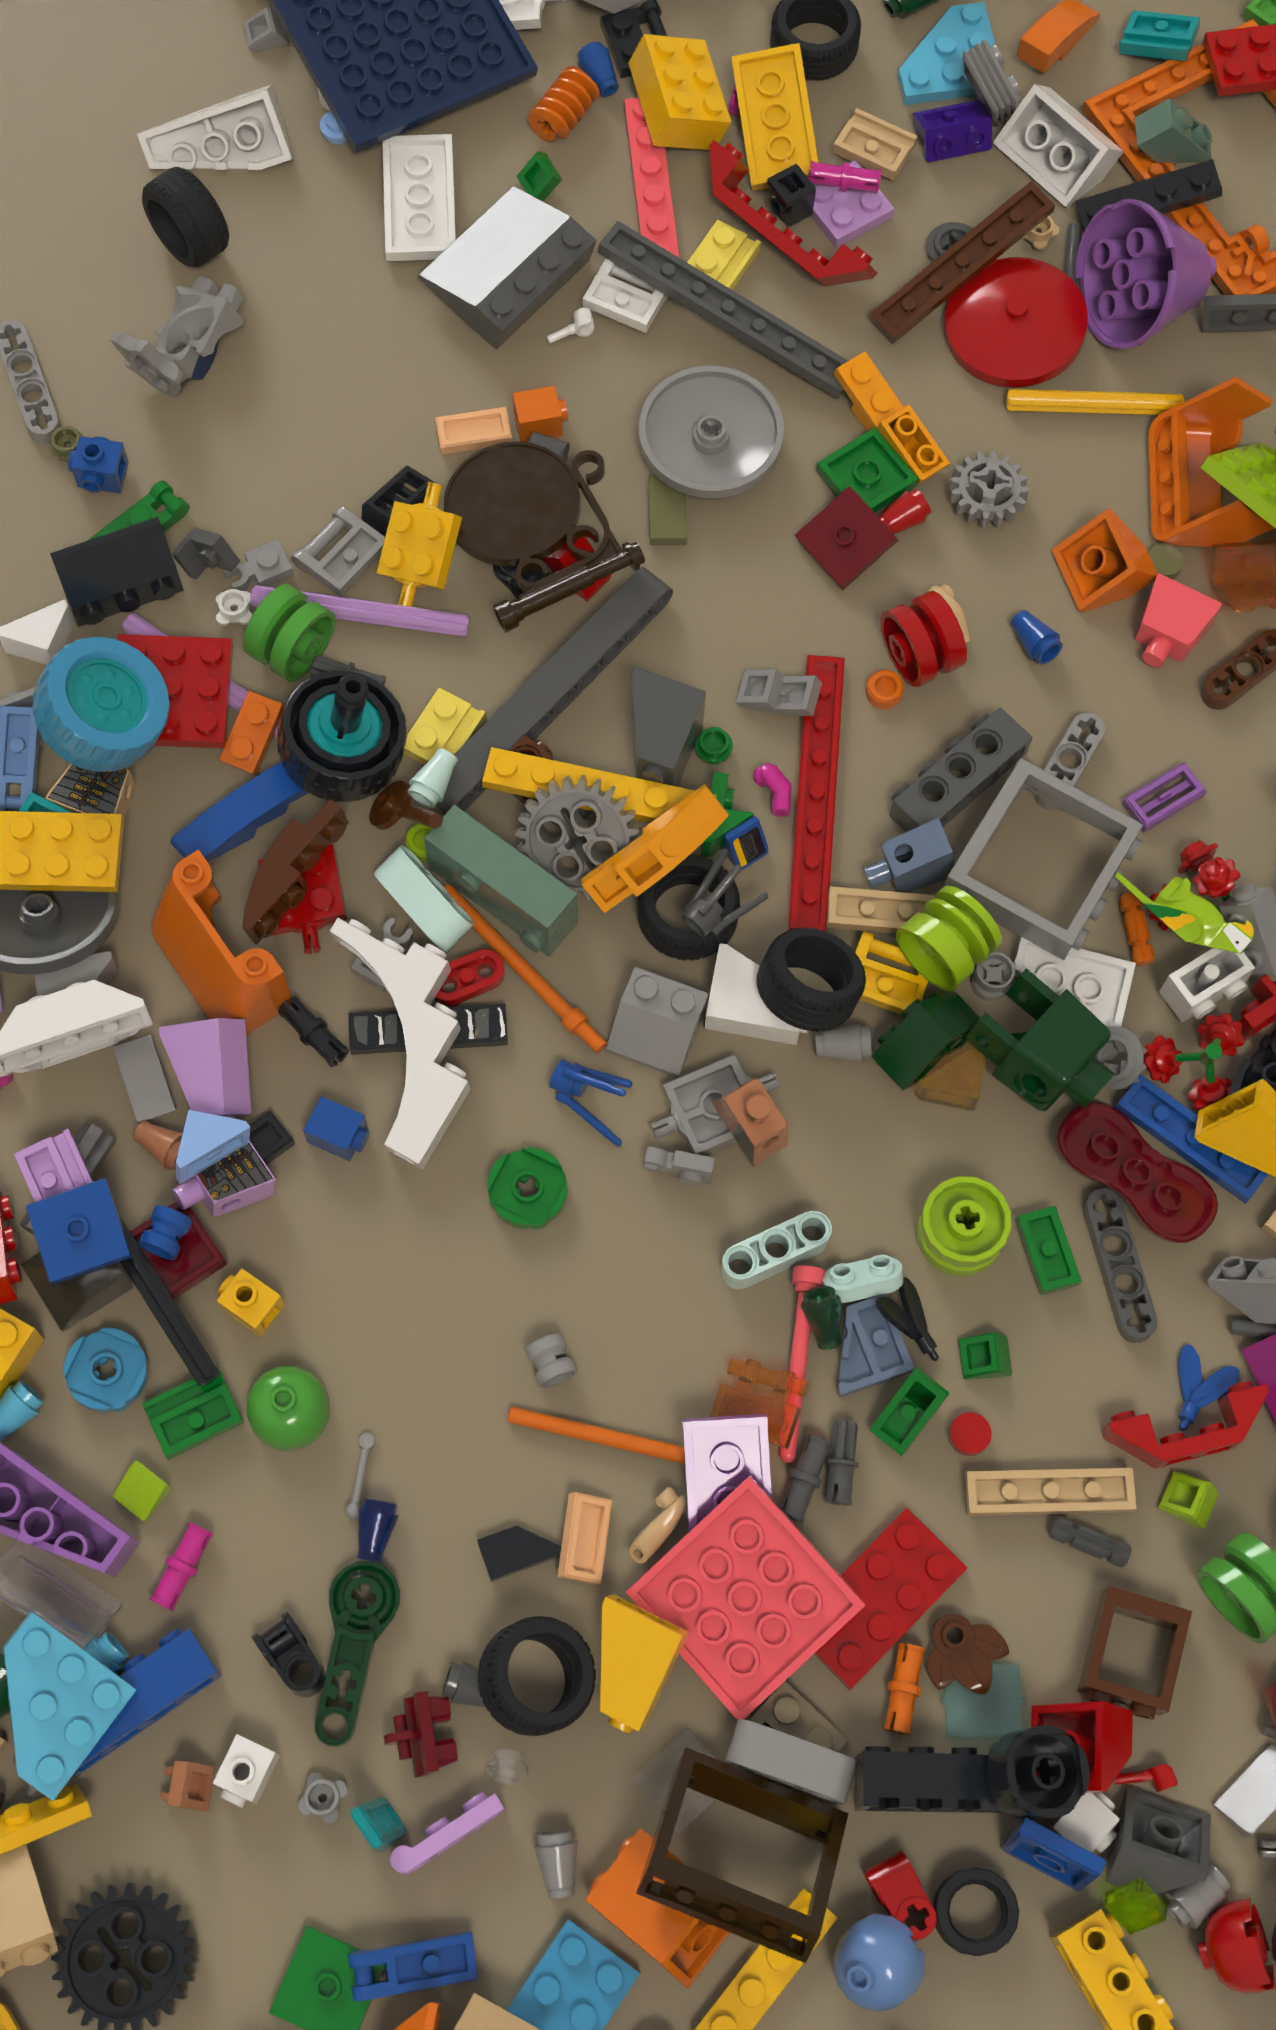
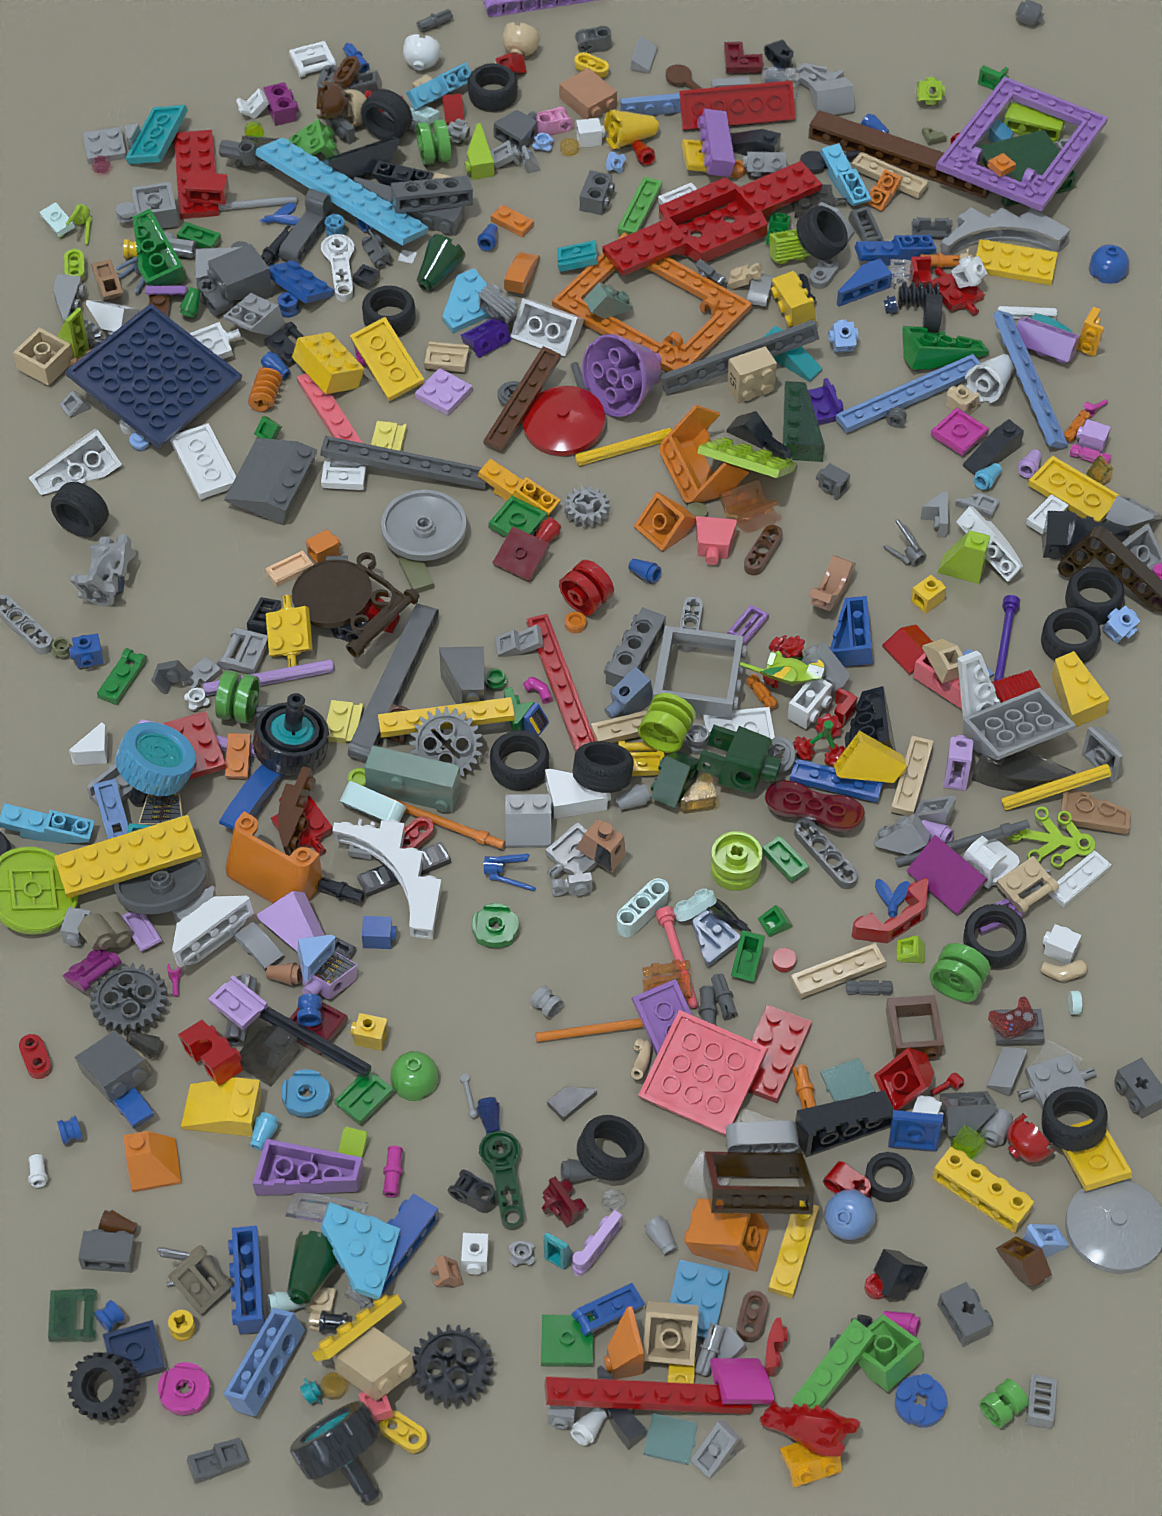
camera: 20 degrees left, 15 degrees down
(78, 1231) = (264, 1021): blue plate -> none
(117, 572) = (125, 699): black slope -> none
(395, 803) = (336, 761): reddish brown piece -> none
(432, 779) = (352, 742): light aqua cone -> none
(582, 326) = (326, 497): white hand -> none
(584, 1538) = (604, 1079): light nougat tile -> none
(635, 1661) = (660, 1123): yellow slope -> none
(657, 851) = (492, 732): light orange slope -> none
(704, 913) = (532, 754): dark grey plant -> none
(786, 200) = (413, 400): black brick -> none
(823, 1315) = (682, 928): clear green cone -> none
(842, 268) = (459, 421): red slope -> none
(844, 176) = (438, 376): dark pink pin -> none
(966, 1660) = (831, 1062): reddish brown plate -> none
(1014, 1779) = (889, 1089): black brick -> none
(1048, 231) = (557, 374): tan plate -> none
(1162, 192) = (622, 326): black plate -> none

